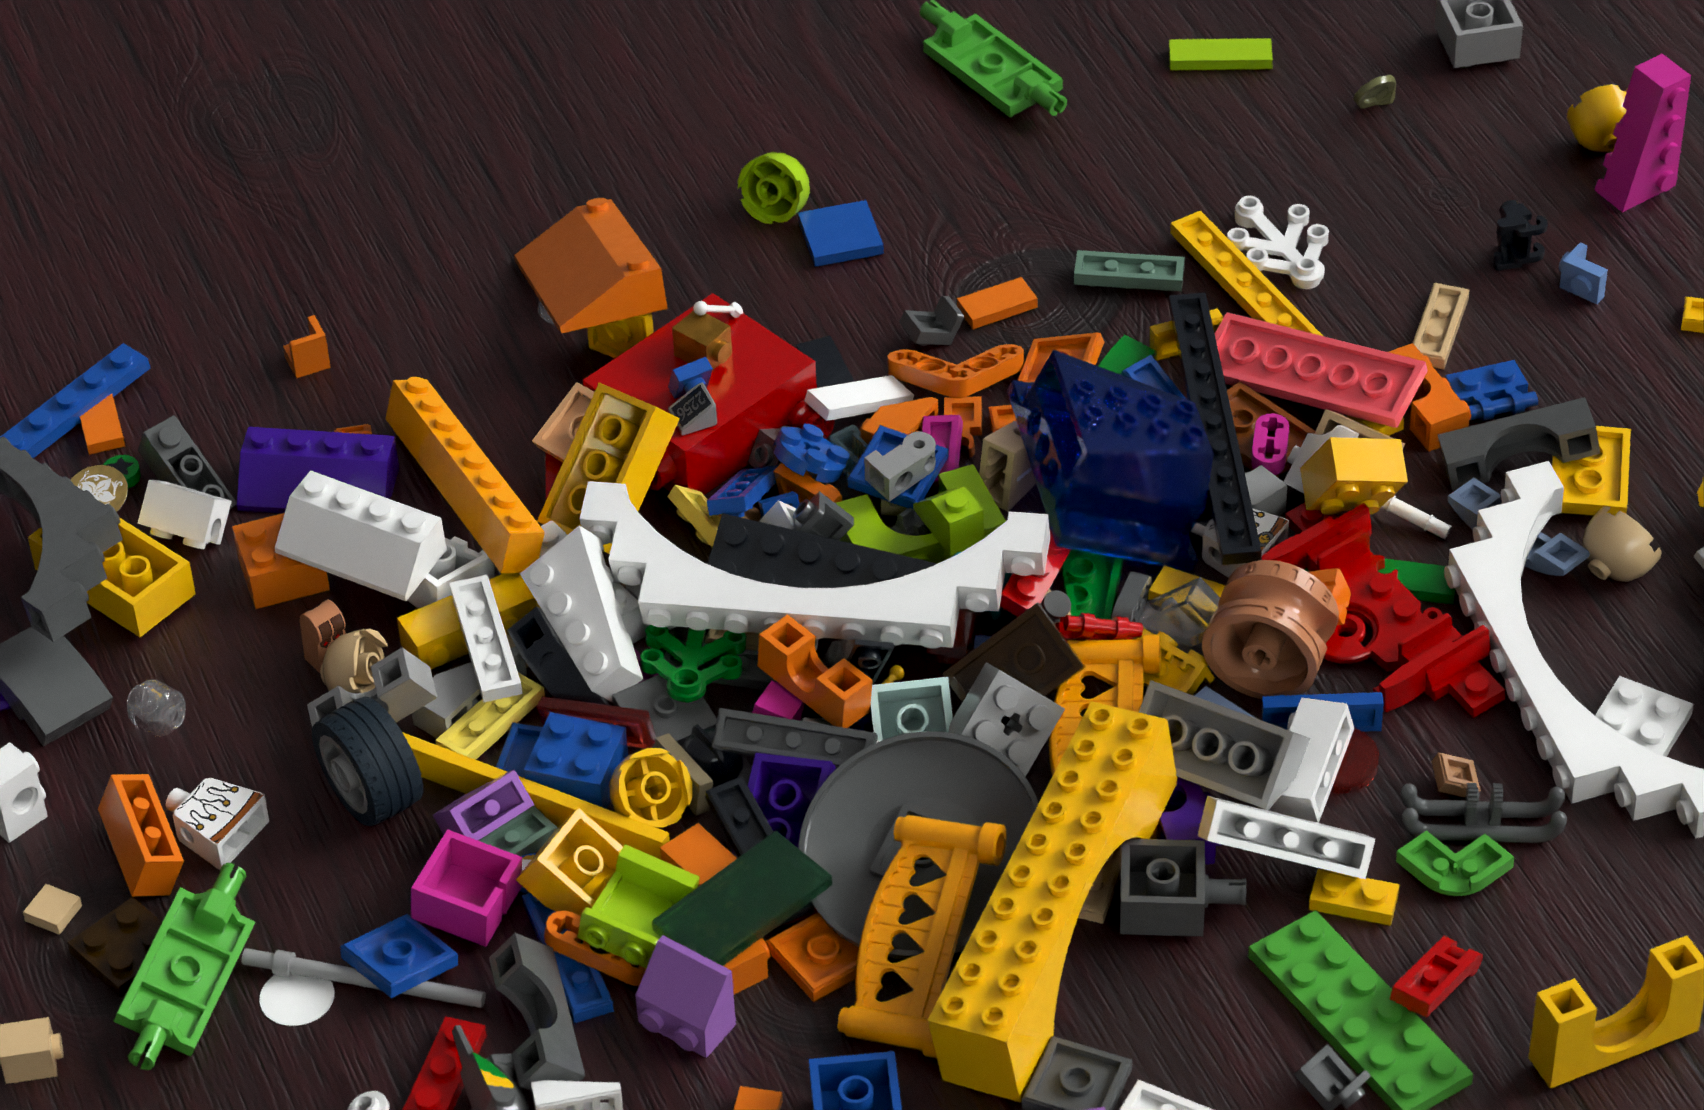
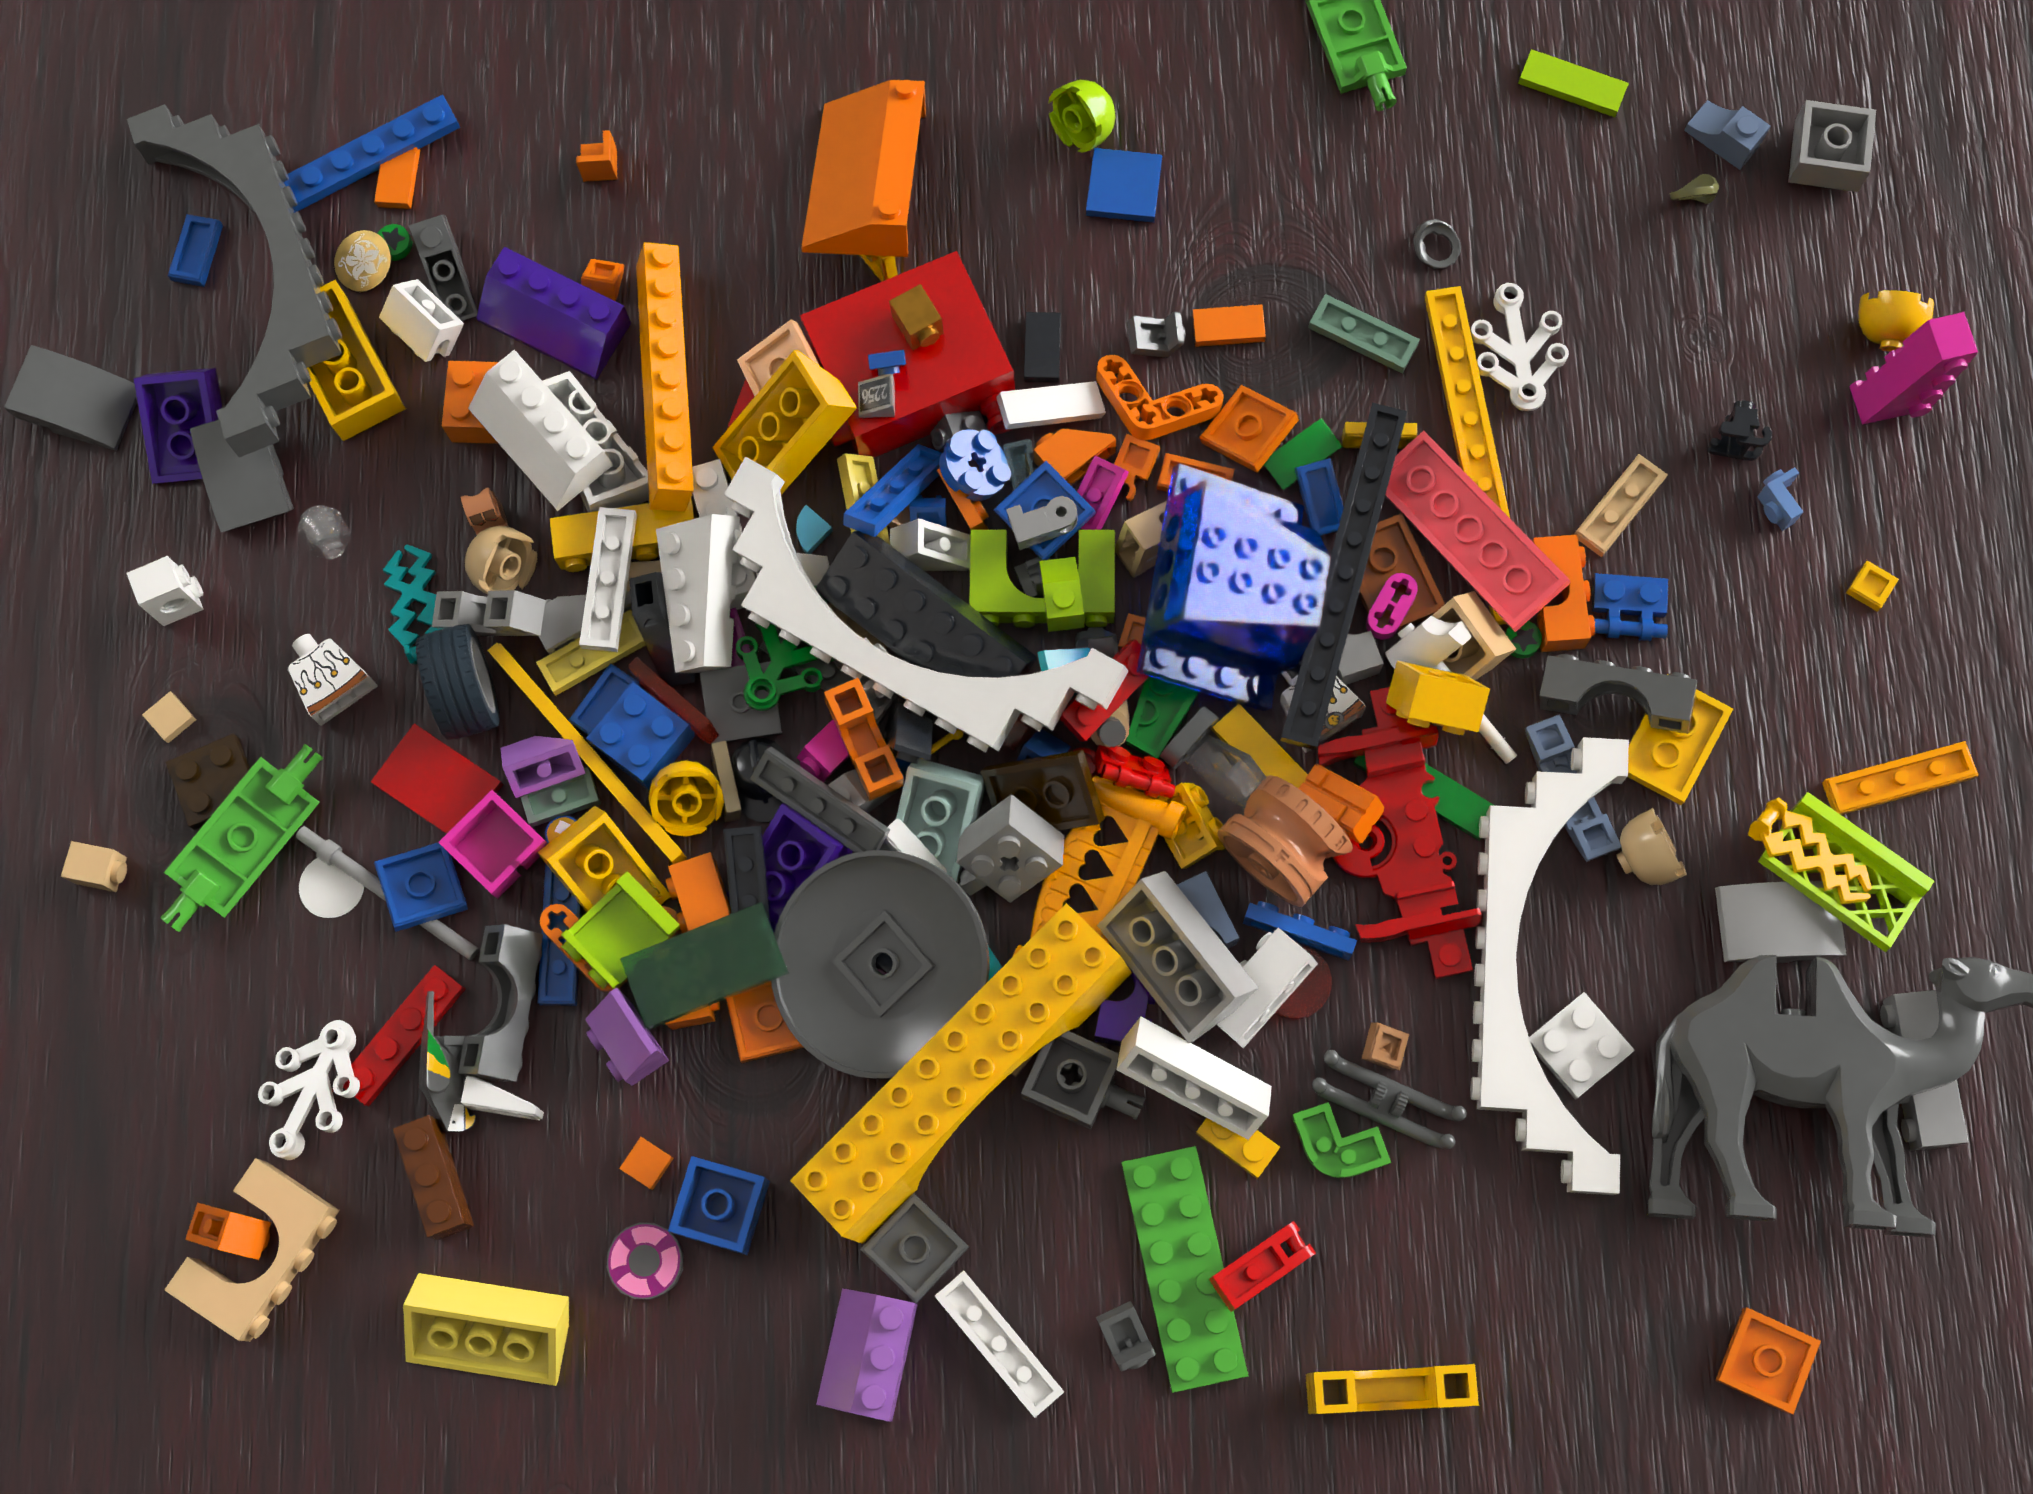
camera: 25 degrees right, 30 degrees up
(140, 835) = (256, 676): orange brick -> none
(274, 731) = (410, 592): none -> teal piece
(366, 872) = (433, 779): none -> red tile
(734, 309) = (964, 283): white hinge -> none
(822, 518) = (947, 553): dark grey bracket -> none
(957, 852) = (897, 998): light orange piece -> none
(1157, 180) = (1439, 228): none -> dark grey piece
(1382, 48) = (1728, 133): none -> sand blue arch
(1413, 440) = (1525, 639): none -> green tile

